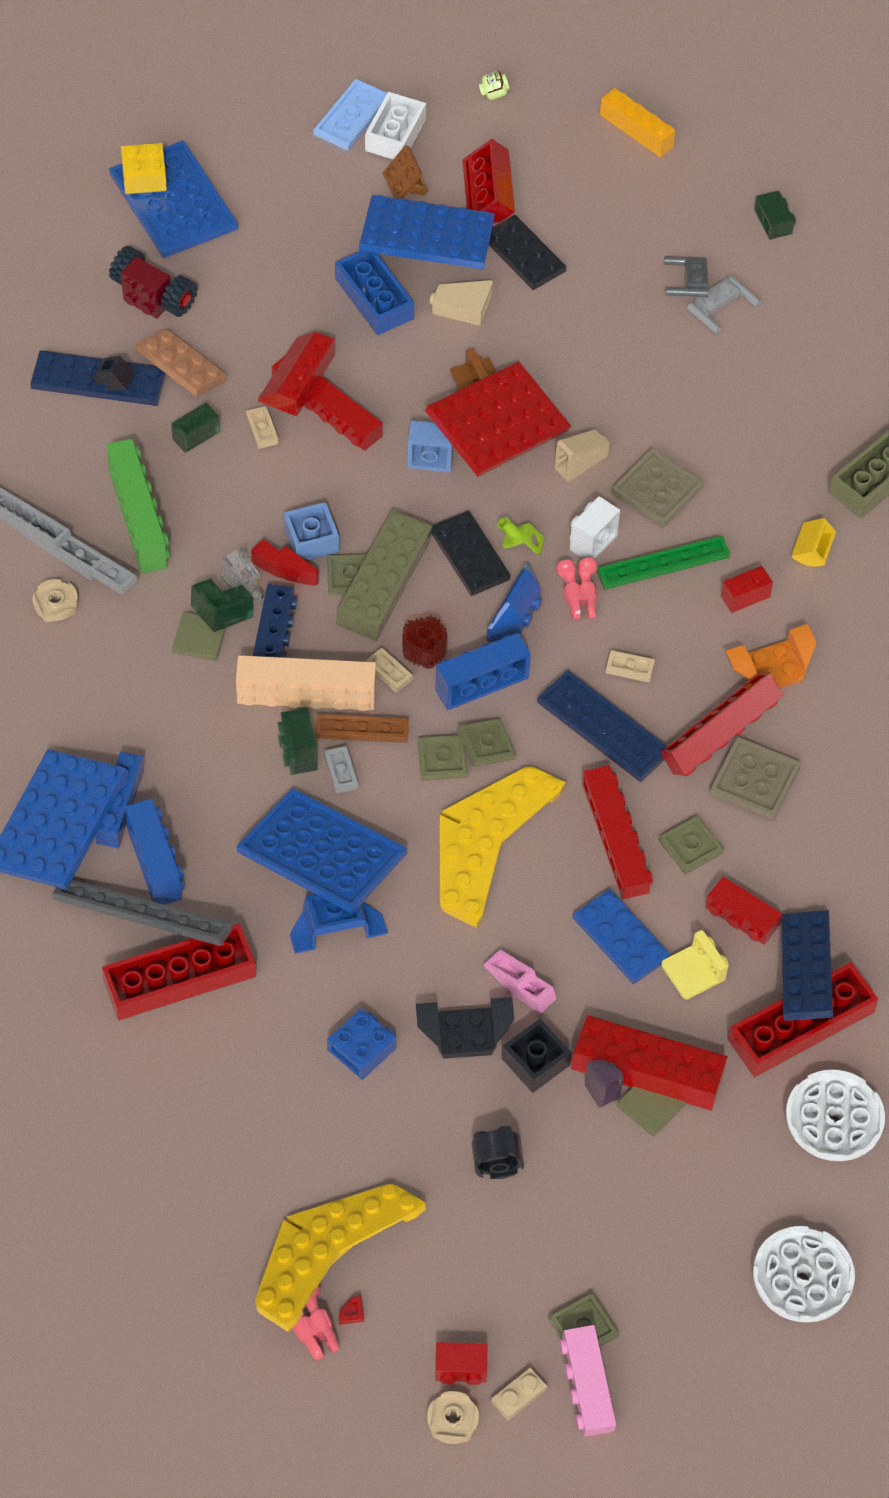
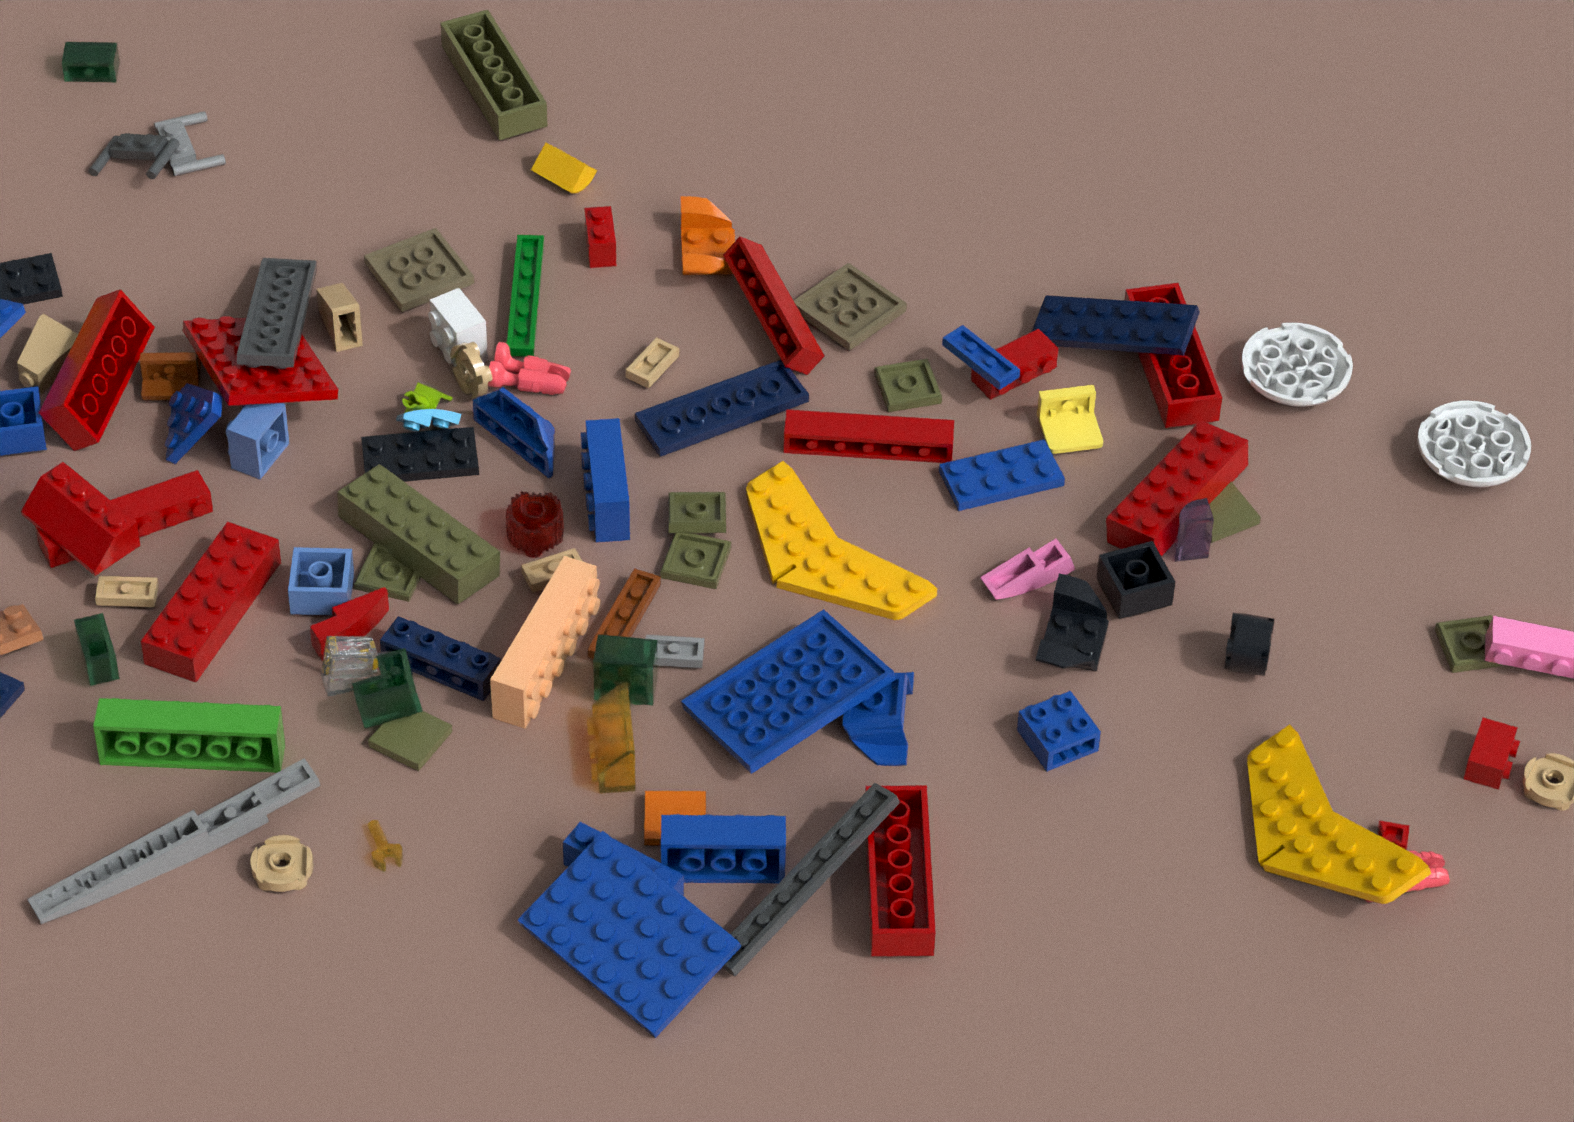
camera: 70 degrees left, 10 degrees down
(93, 654) = (383, 849): none -> clear yellow bar
(186, 819) = (669, 803): none -> orange tile
(232, 759) = (612, 742): none -> clear yellow slope
(269, 477) = (211, 602): none -> red brick
(422, 401) = (191, 416): none -> blue plate
(450, 330) = (97, 370): none -> red brick
(495, 536) = (422, 418): none -> medium azure slope
(519, 1394) = (1538, 719): tan plate -> none
(549, 411) = (277, 313): none -> dark grey plate
(556, 550) = (470, 370): none -> tan plate
(721, 878) = (981, 357): none -> blue plate

